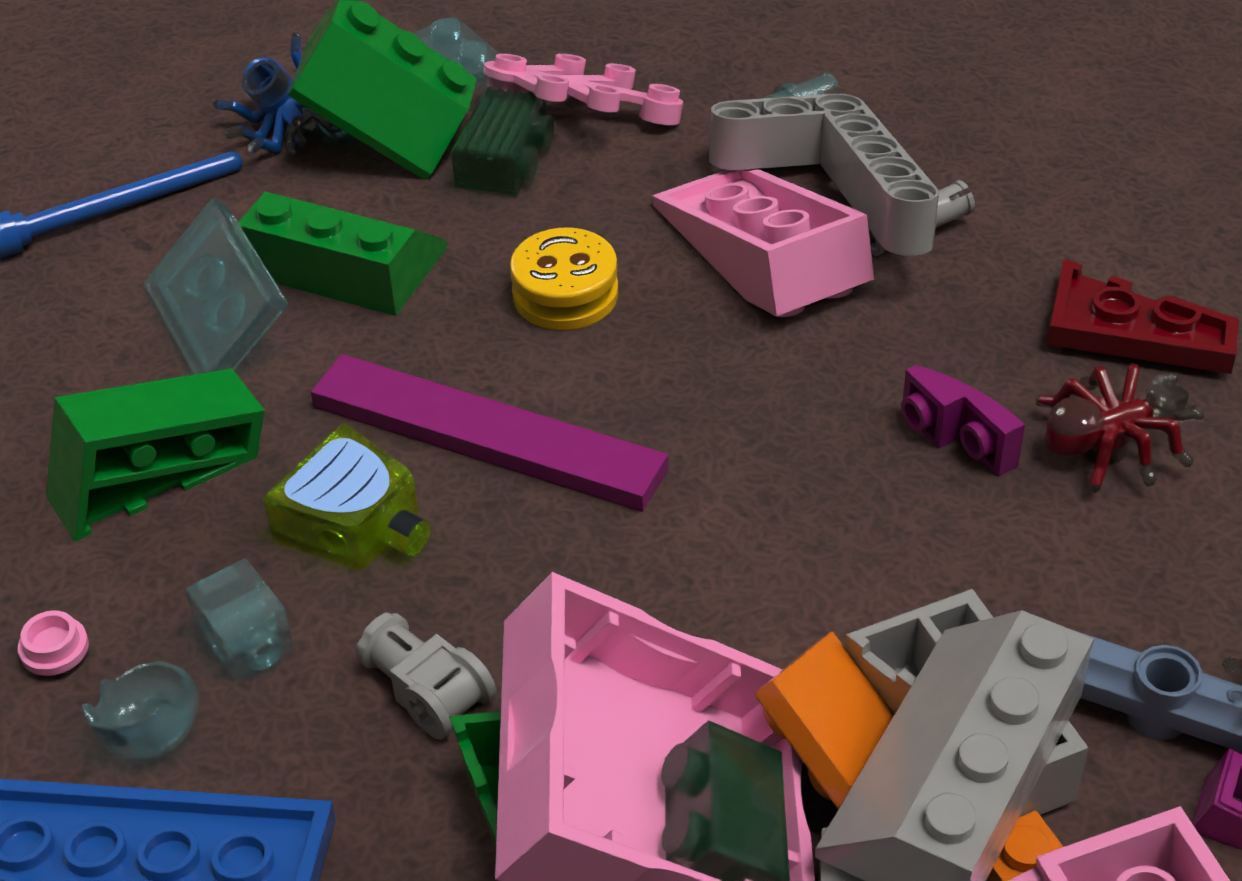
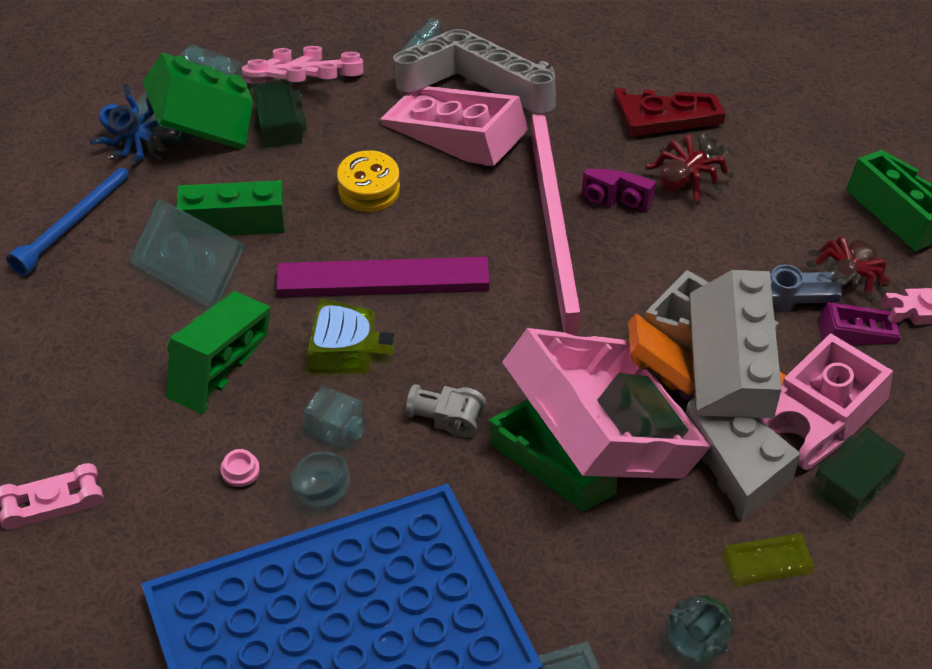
camera: 30 degrees left, 5 degrees up
(808, 449) = (555, 226): none -> bright pink tile

